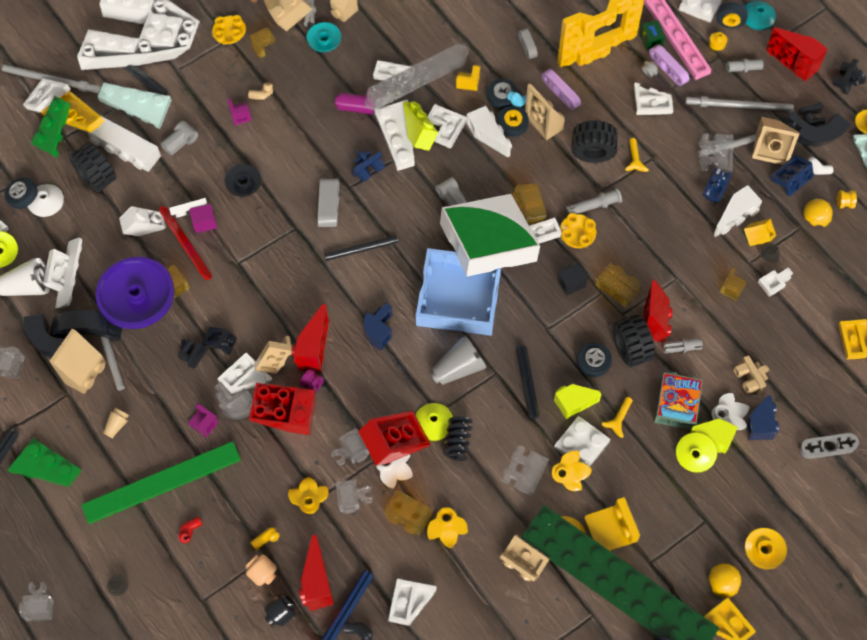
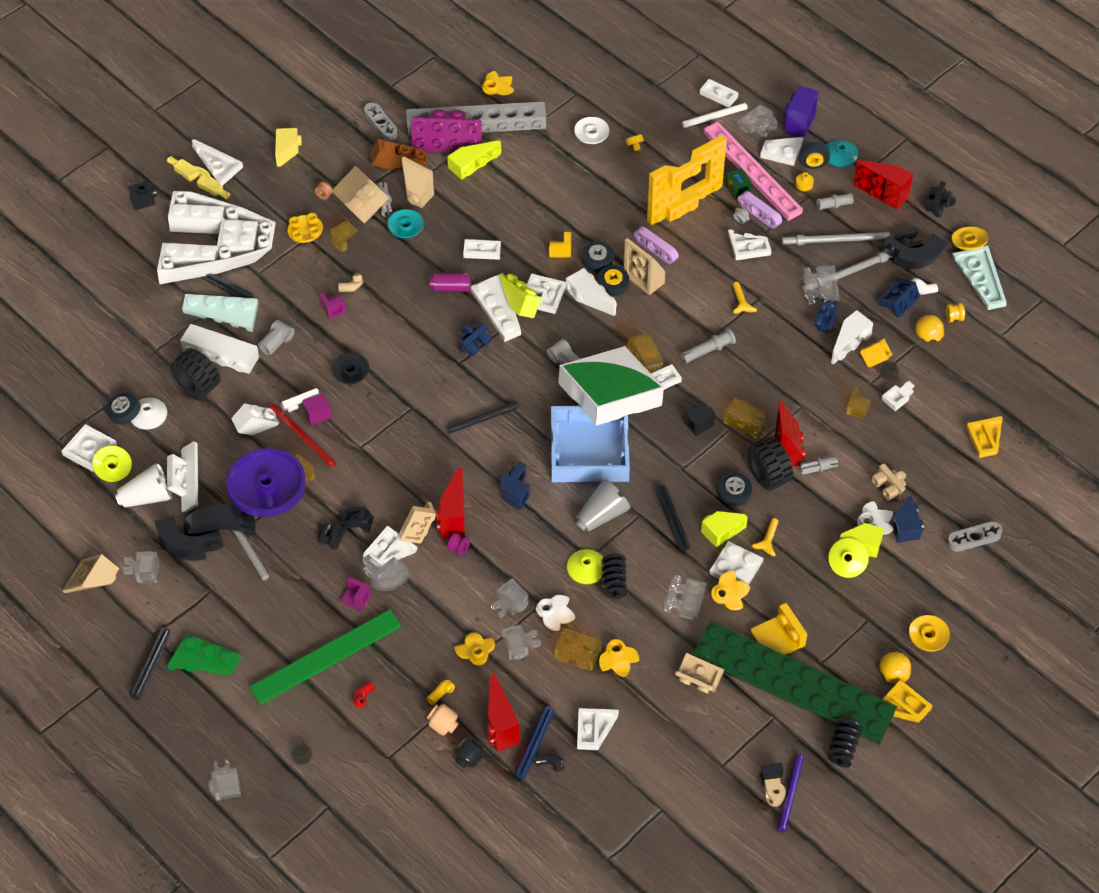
camera: 10 degrees left, 10 degrees down
(44, 94) = (127, 311): white wing -> none
(50, 128) = (141, 345): green wing -> none
(77, 362) = (221, 555): tan slope -> none
(80, 114) = (162, 324): yellow wing -> none
(81, 86) = (164, 300): light grey bar -> none
(115, 422) = (268, 607): tan cone -> none
(283, 407) = (436, 570): red slope -> none
(328, 203) = (441, 378): light grey beam -> none
(393, 437) = (550, 581): red slope -> none
(416, 76) = (508, 249): clear beam -> none
(516, 99) = (613, 258): medium azure arm -> none
(527, 43) = (614, 206): light grey beam -> none
(578, 230) = (697, 374): yellow dish -> none
(594, 141) = (699, 288): black tyre -> none
(678, 400) = (823, 514): brick -> none
(774, 141) = (875, 267): tan slope -> none

